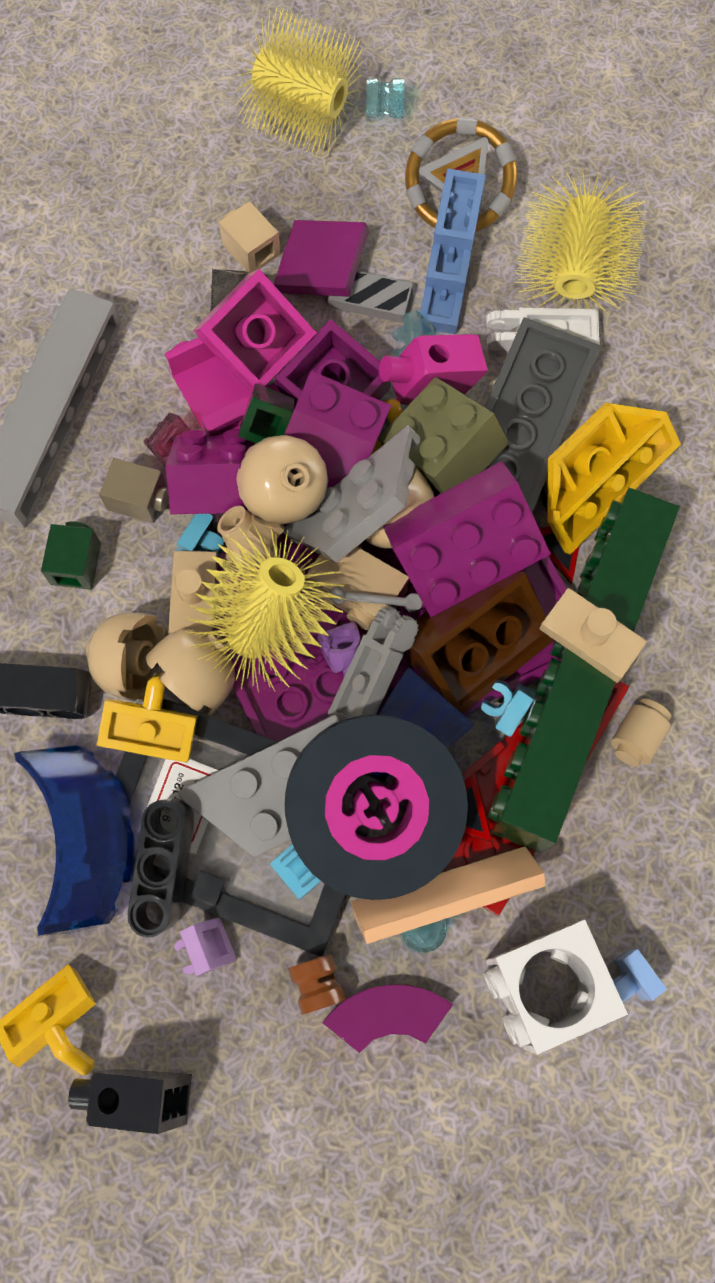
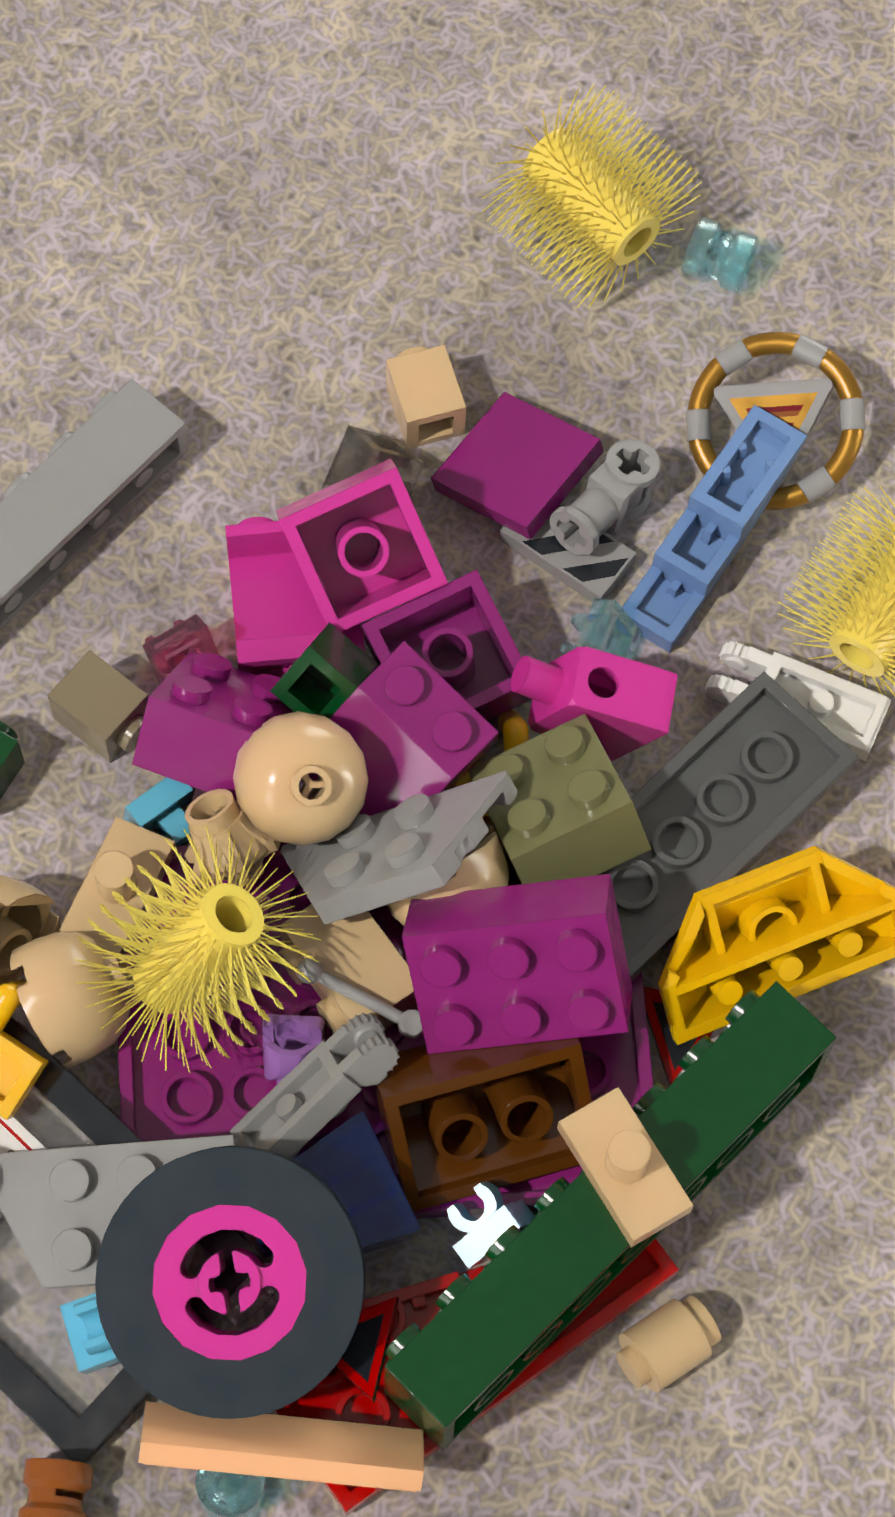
camera: 20 degrees right, 5 degrees down
(385, 255) = (612, 497): none -> light grey connector

